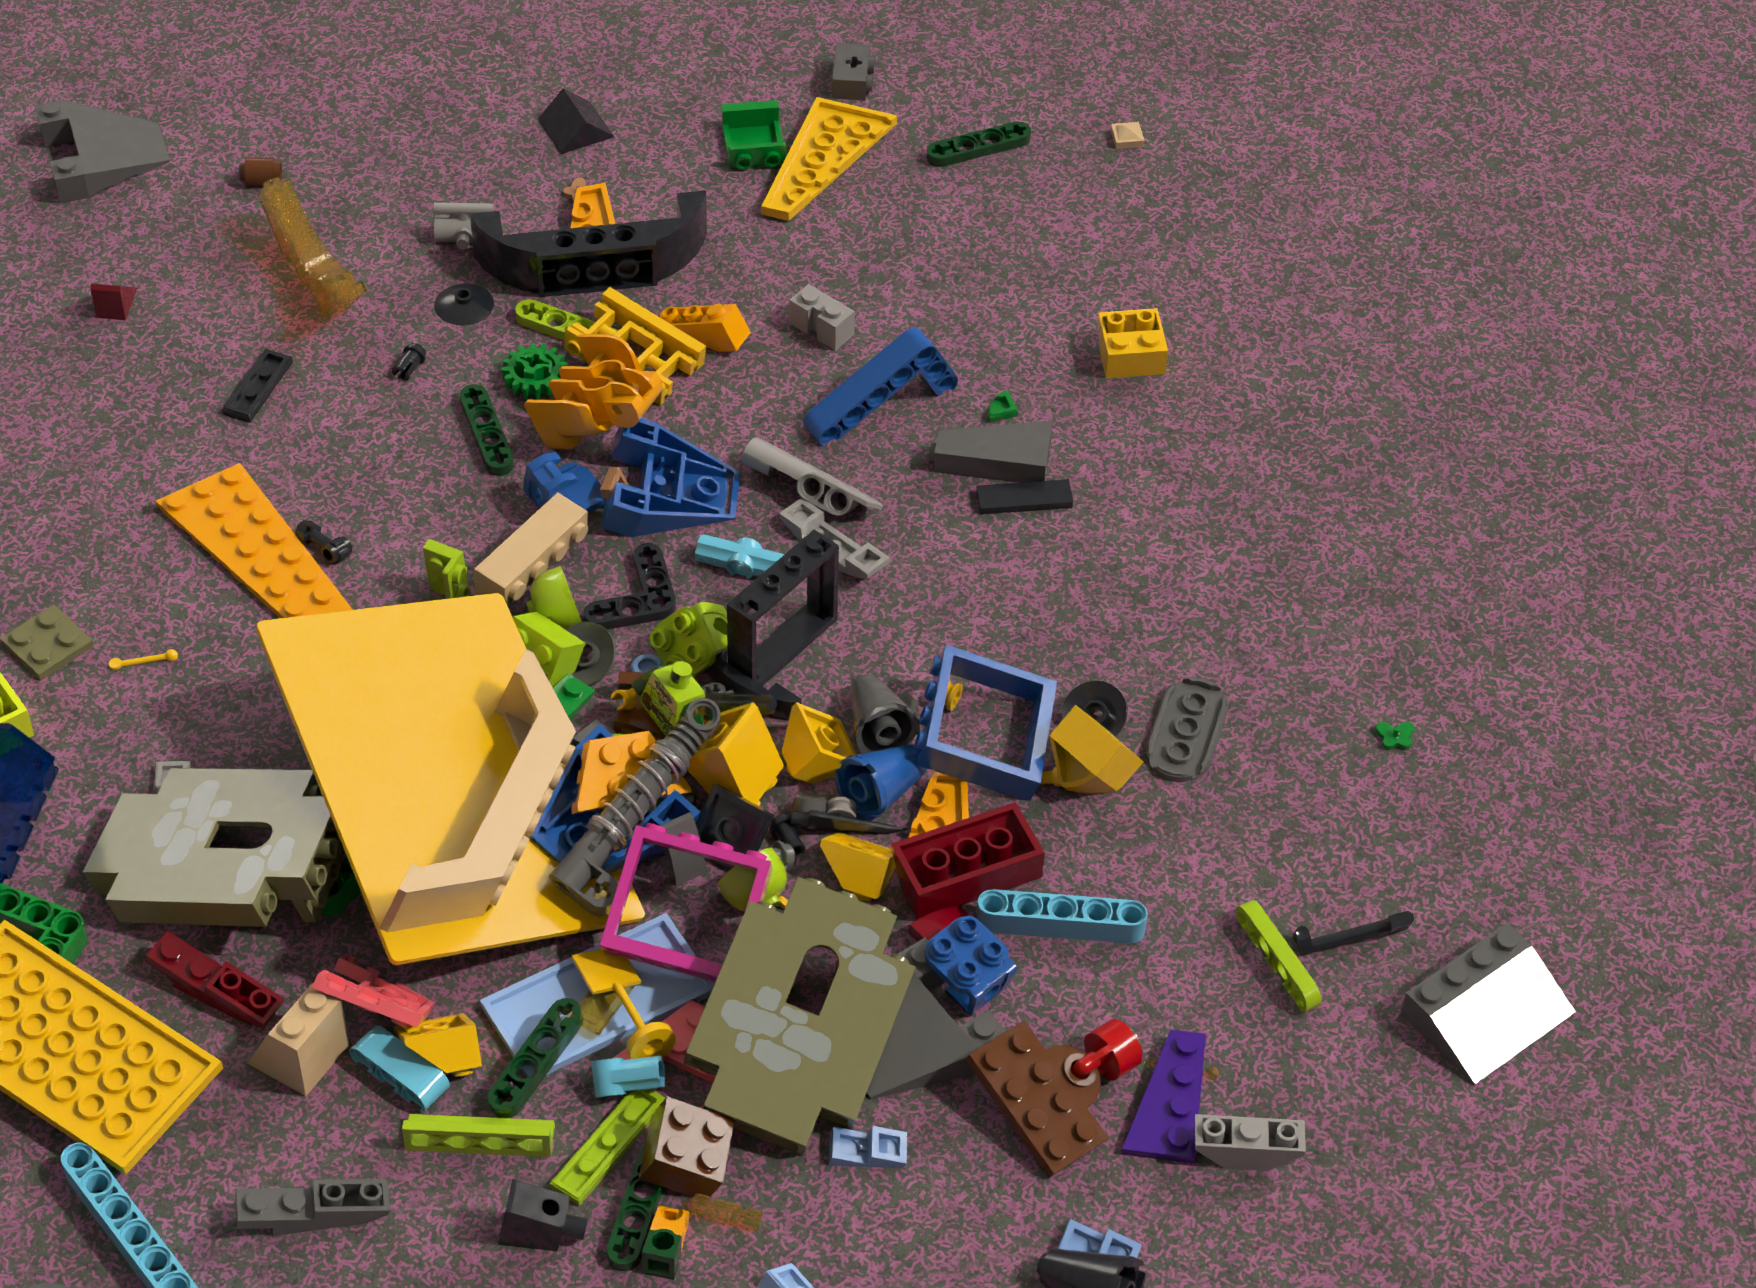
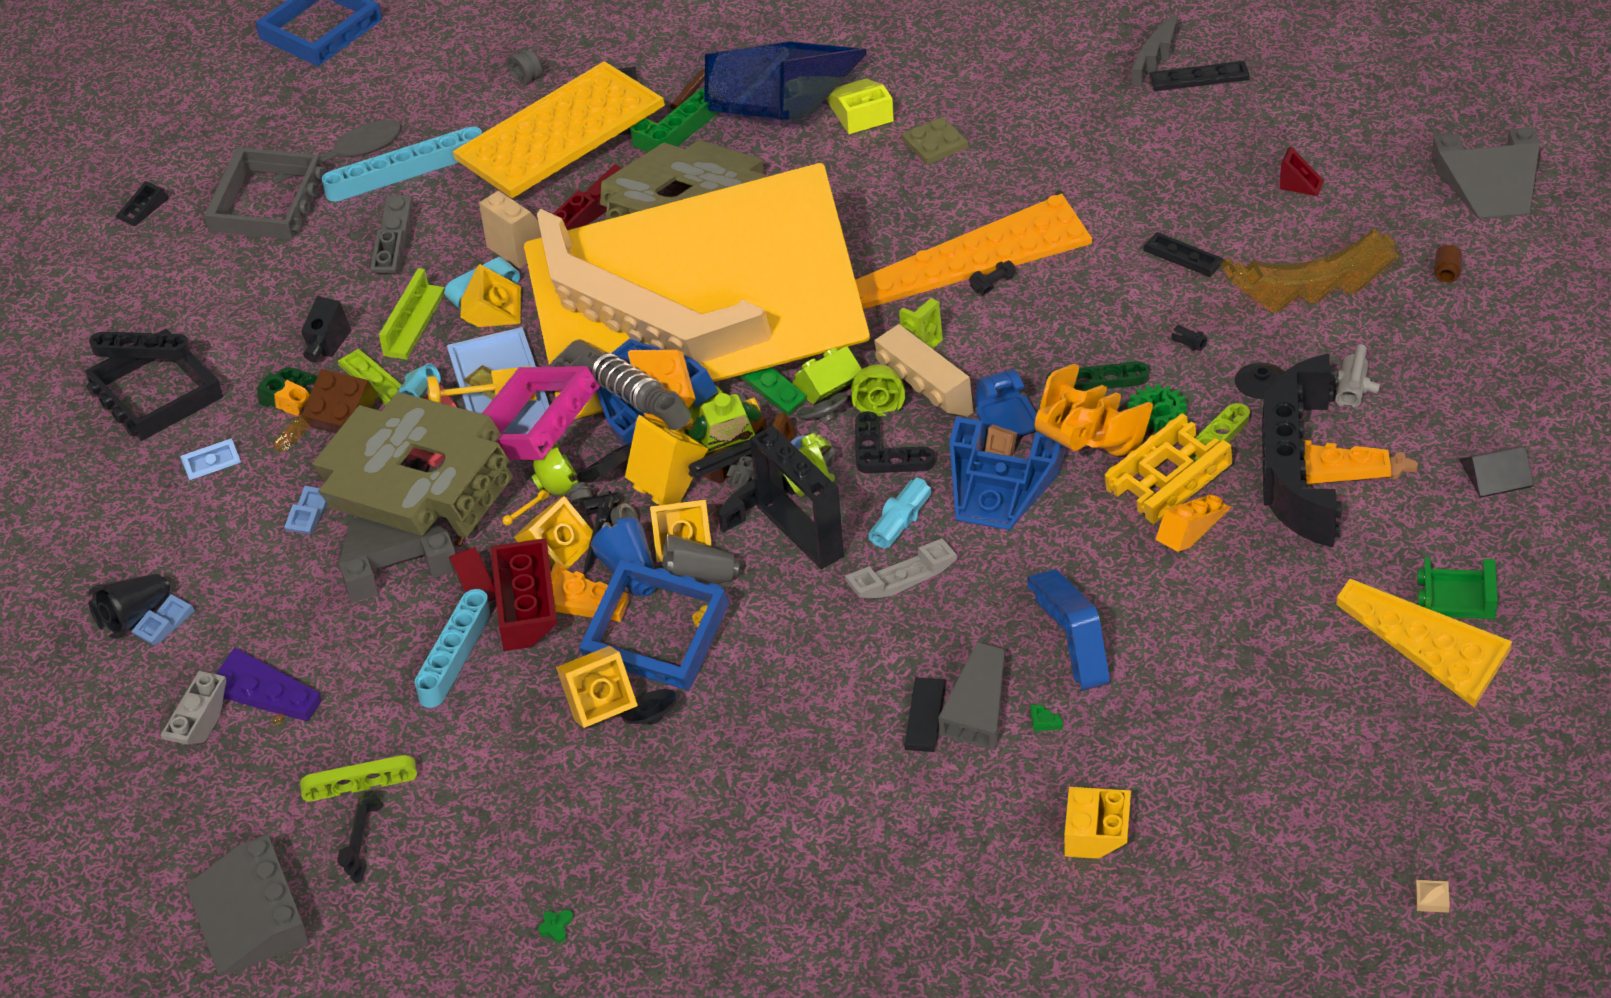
camera: 110 degrees right, 5 degrees down
(171, 655) = (903, 198): yellow hinge -> none
(374, 994) = (511, 265): coral wing -> none
(531, 1055) = (451, 341): dark green beam -> none
(682, 864) = (597, 428): dark grey slope -> none
(771, 459) = (982, 562): light grey panel -> none
(824, 315) = (1181, 602): light grey brick -> none
(851, 71) = (1552, 675): dark grey brick -> none
(970, 962) = (417, 568): blue piece -> none
(1004, 134) = (1431, 766): dark green beam -> none
(1052, 1088) = (297, 609): reddish brown plate -> none
(1187, 729) = (618, 776): dark grey tile -> none

